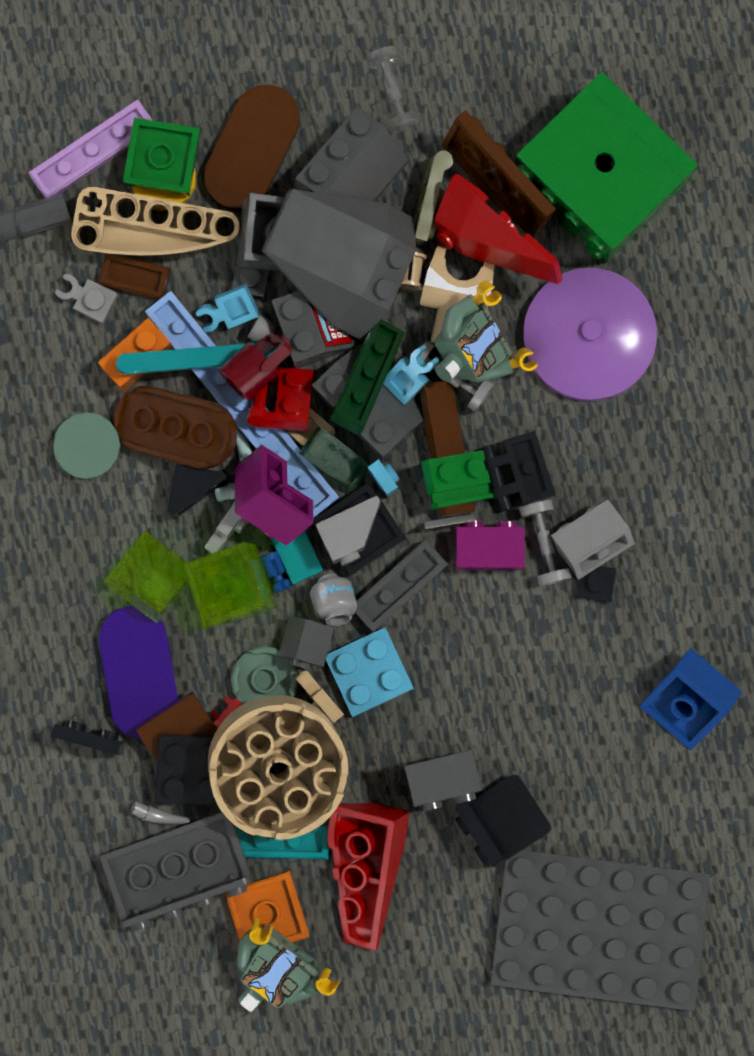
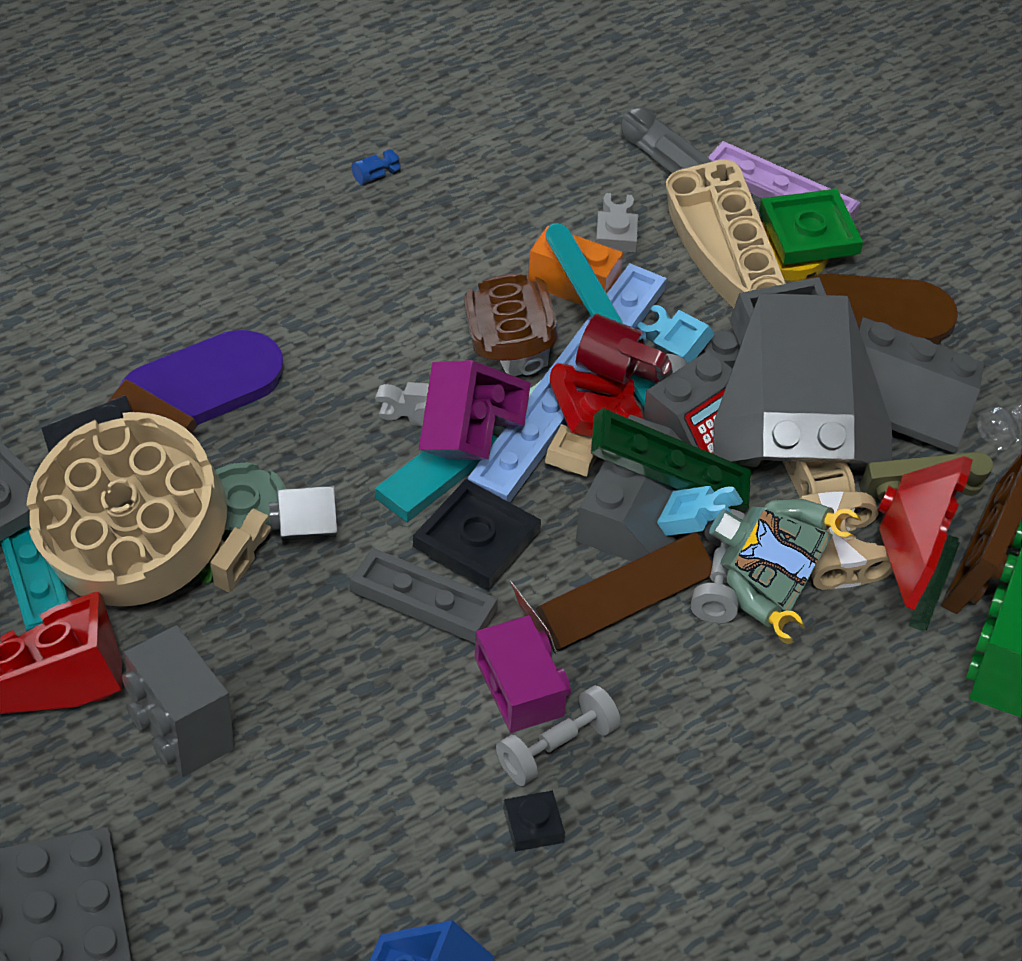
camera: 65 degrees right, 35 degrees down
(76, 733) = (100, 341): black plate -> none
(87, 446) = (448, 266): sand green tile -> none
(134, 276) = (665, 253): reddish brown tile -> none
(149, 577) = (321, 357): clear neon green slope -> none
(157, 816) = (27, 440): light grey helmet -> none
(191, 486) = (437, 345): black slope -> none
(229, 585) = (346, 421): clear neon green slope -> none
(275, 569) = (383, 468): blue piece -> none
(333, 600) = (372, 524): light grey head -> none
(334, 459) = (552, 475): clear green plate -> none
(348, 531) = (470, 504): light grey slope -> none
(369, 672) = (295, 602): medium azure plate -> none
(384, 477) = (554, 534): medium azure plate -> none
(457, 479) = (592, 604): green plate -> none
(503, 821) = (138, 800): black bracket -> none
(527, 467) = (649, 685): black plate -> none
(590, 334) = (865, 706): medium lavender dish -> none
(592, 539) = (590, 782): light grey brick -> none

